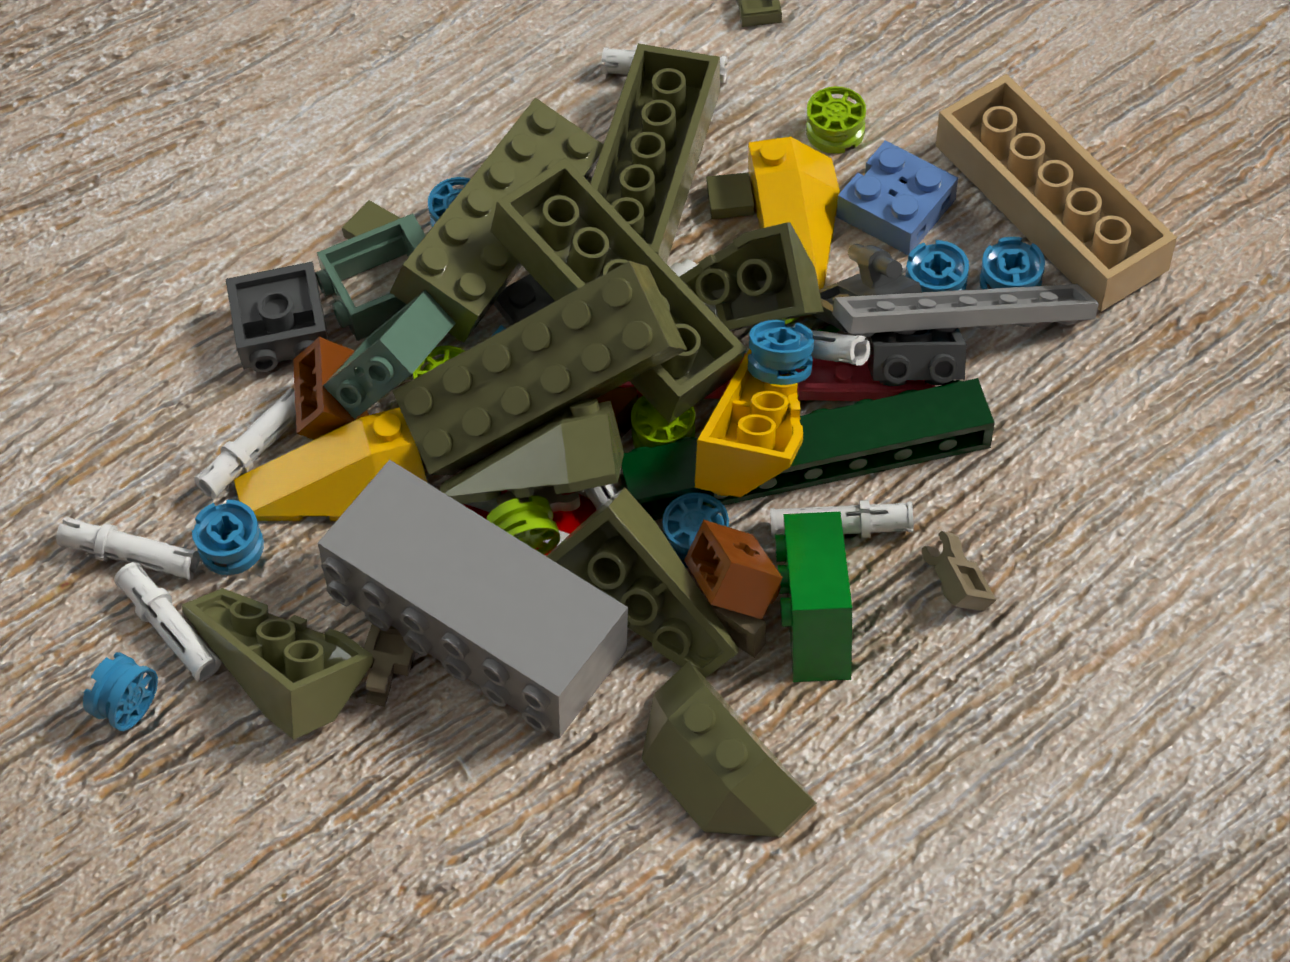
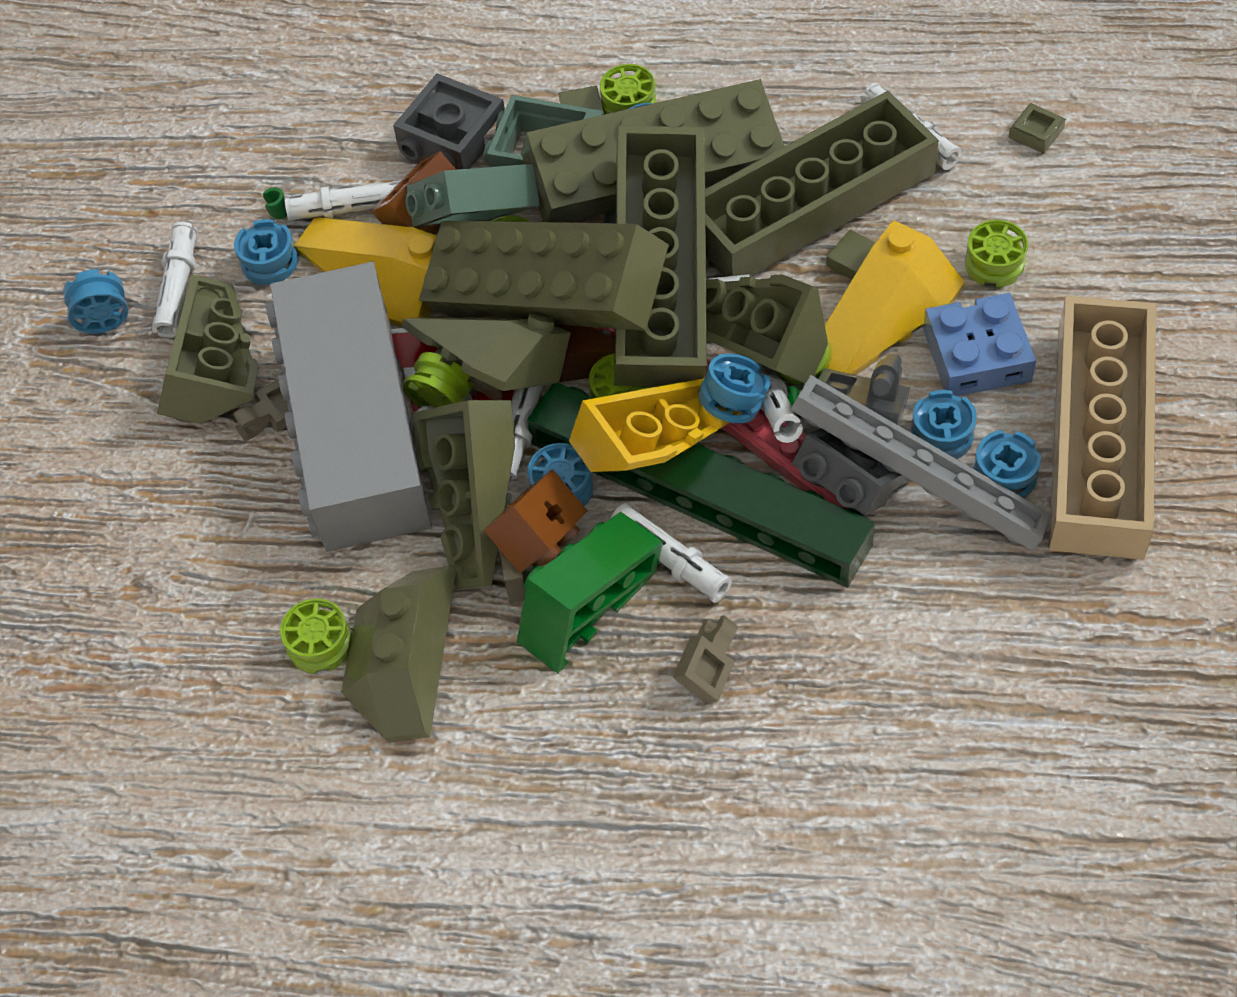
camera: 45 degrees right, 0 degrees up
(110, 543) = (196, 202): white pin -> none
(182, 483) = (275, 202): none -> green hand
(406, 188) = (626, 90): none -> lime wheel
(638, 805) = (315, 636): none -> lime wheel

